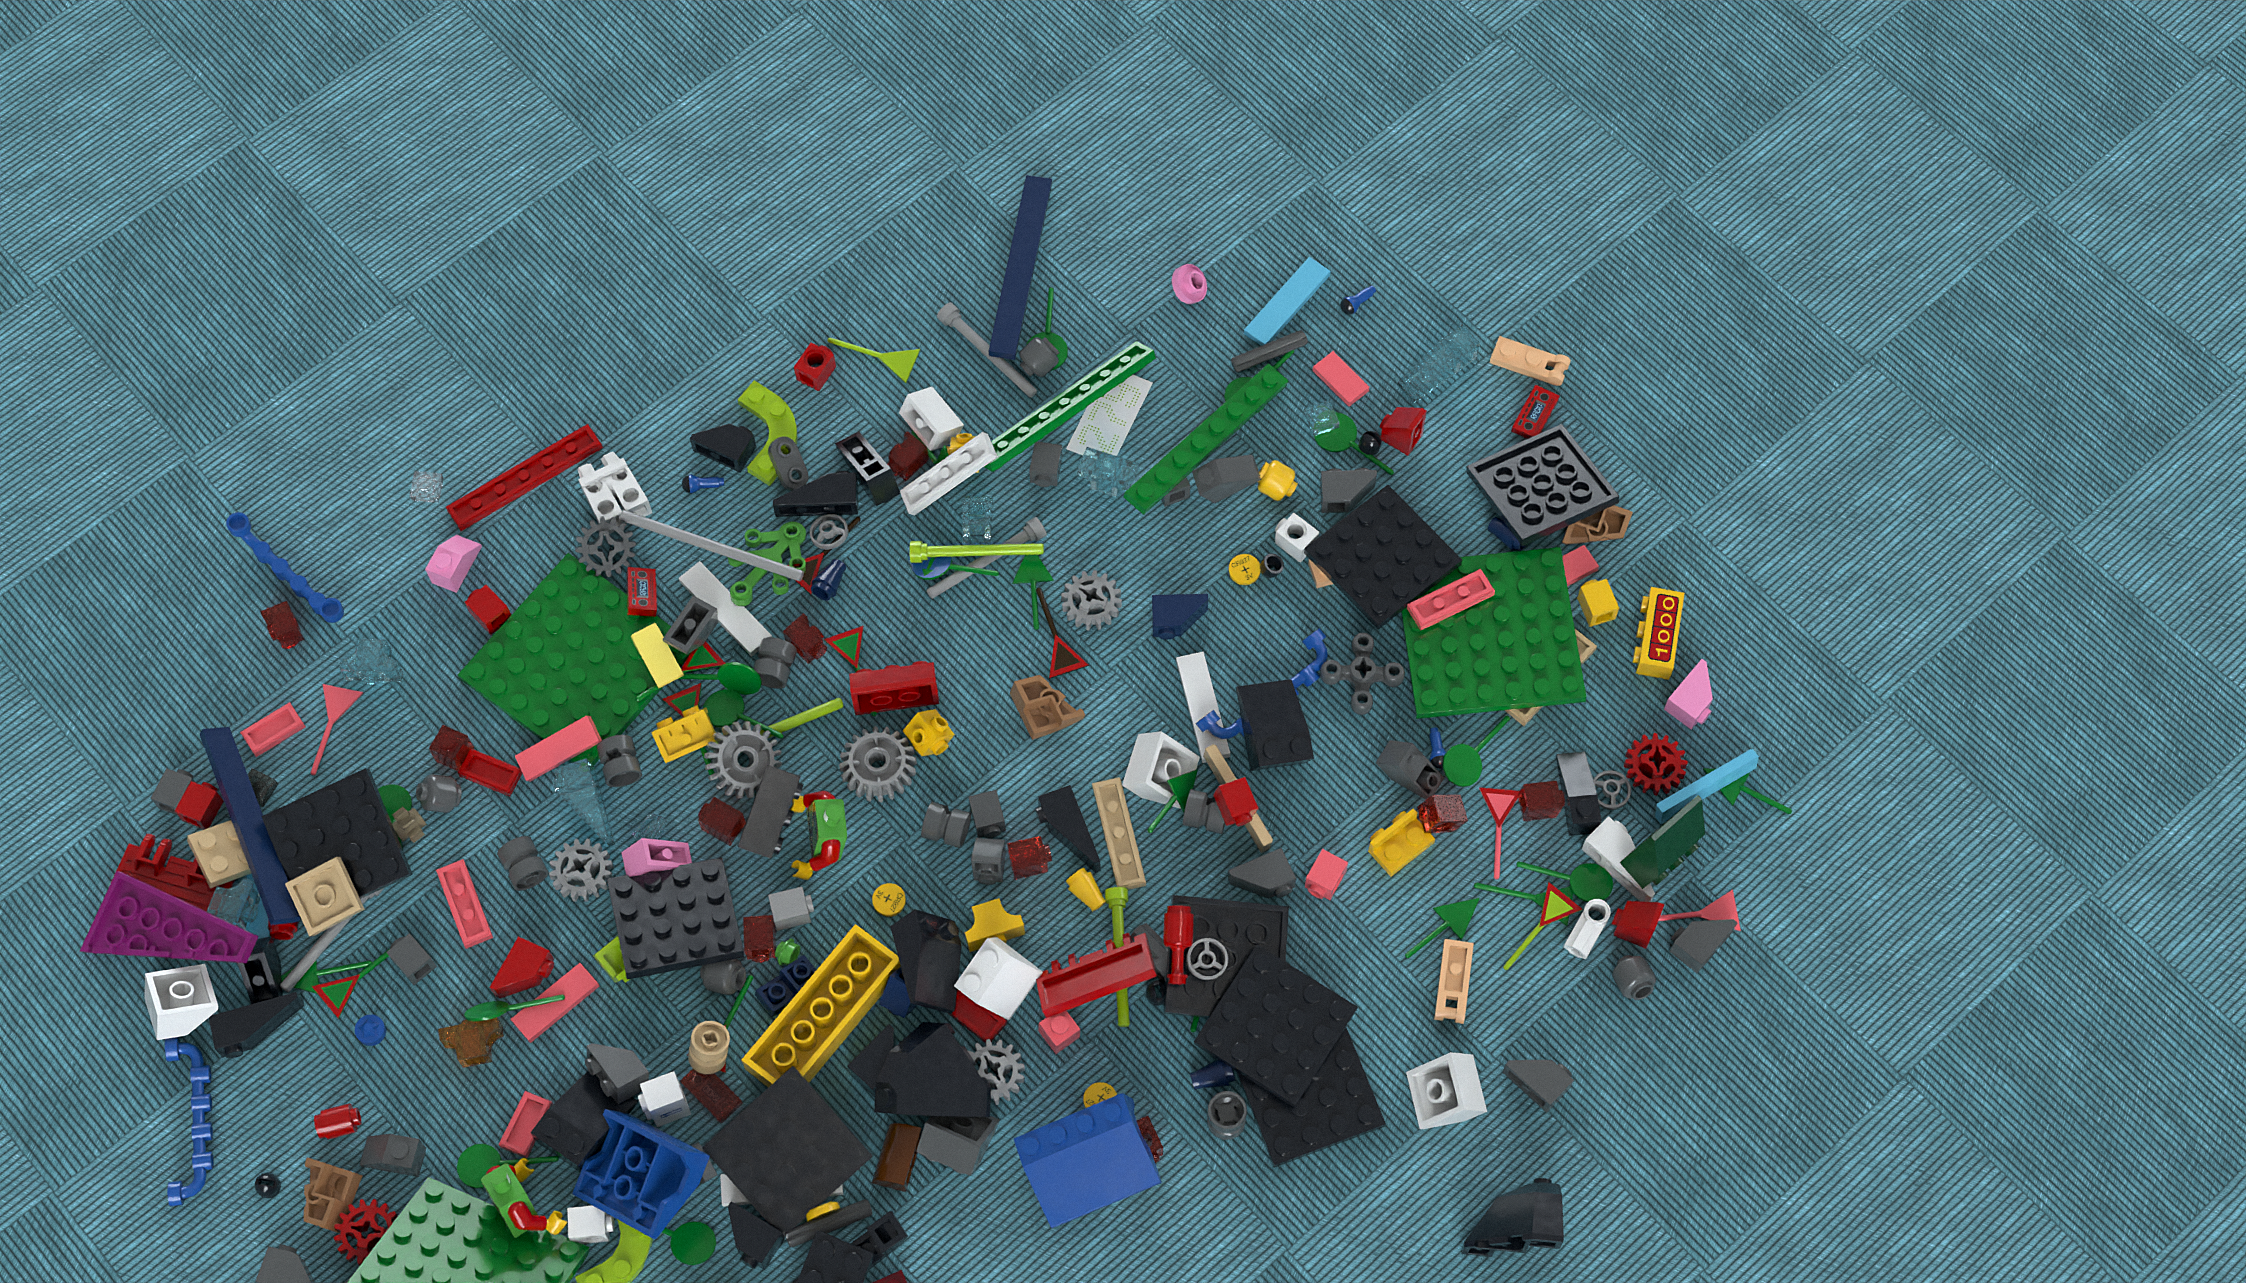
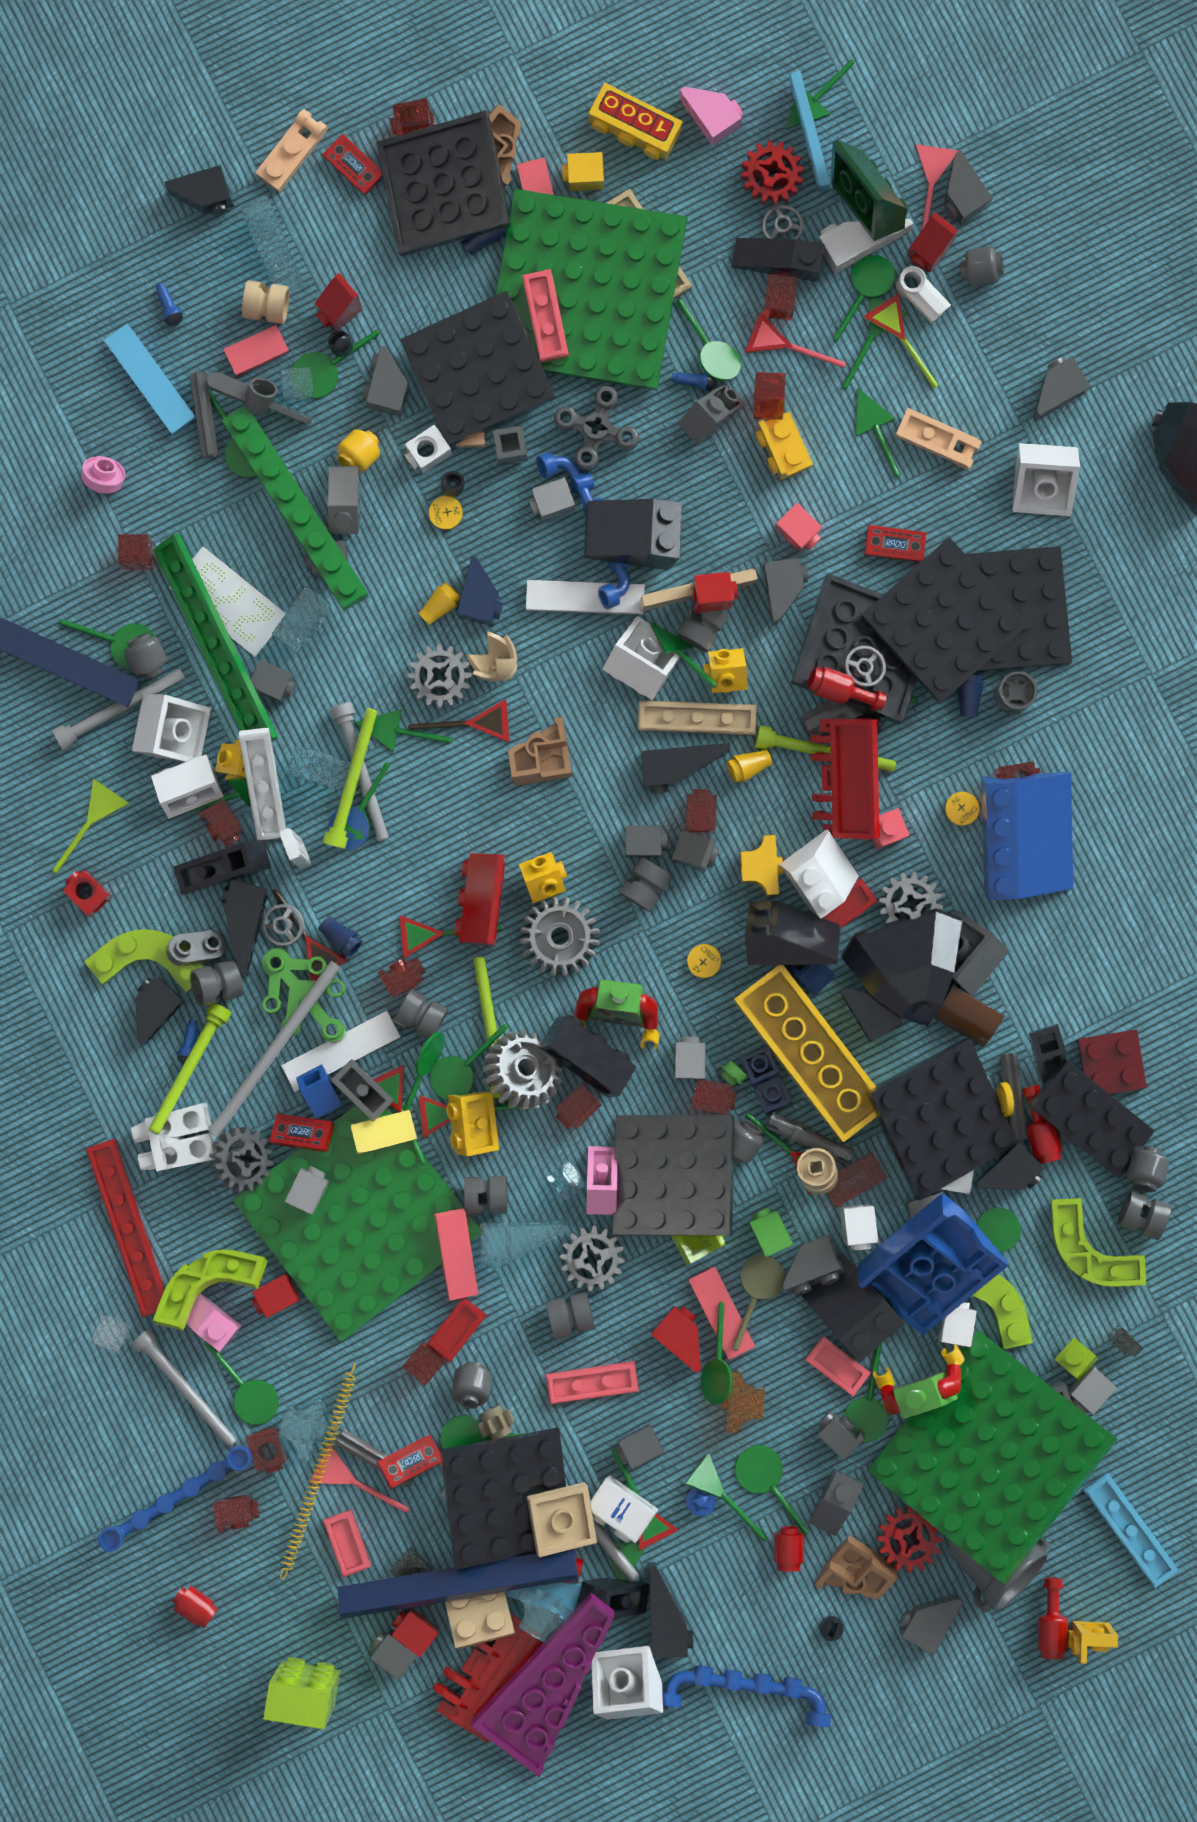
camera: 75 degrees left, 20 degrees up
(121, 709) = (302, 1693): none -> lime brick
(190, 614) = (194, 1606): none -> red brick
(334, 683) = (320, 1466): none -> yellow piece
(344, 627) = (267, 1435): none -> clear red brick
(347, 956) = (622, 1510): none -> white brick
(355, 733) = (362, 1450): none -> dark grey axle
(355, 755) = (409, 1462): none -> red tile
(390, 1029) = (707, 1480): none -> piece
(391, 619) = (255, 1399): none -> green piece
(408, 1080) = (759, 1472): none -> green piece
(422, 516) = (147, 1345): none -> light grey piece
(458, 1139) = (839, 1433): none -> dark grey brick
(503, 553) = (194, 1278): none -> lime plate
(588, 605) = (308, 1189): none -> light grey brick
(593, 1027) = (762, 1280): none -> olive piece
(640, 1021) = (769, 1231): none -> bright green slope
(679, 592) = (319, 1091): none -> blue brick
(729, 496) = (215, 1018): none -> lime piece
(742, 1032) = (804, 1136): none -> dark grey pin
(760, 486) = (220, 982): none -> dark grey wheel
(790, 1260) = (1041, 1134): none -> red piece
(894, 507) = (295, 848): none -> white tile
(980, 395) = (170, 728): none -> white slope
(1115, 644) = (500, 661): none -> tan piece
(1128, 326) = (135, 551): none -> clear red brick
(1158, 582) = (440, 603): none -> yellow cone
(1169, 844) = (727, 670): none -> yellow brick
(1284, 653) = (552, 500): none -> light grey brick
(1299, 386) = (257, 396): none -> dark grey piece
(1321, 601) = (510, 445): none -> dark grey brick
(1340, 968) = (895, 543): none -> red tile
(1385, 370) = (265, 302): none -> tan wheel
(1469, 299) = (202, 190): none -> black slope
(1595, 446) = (411, 116): none -> clear red brick

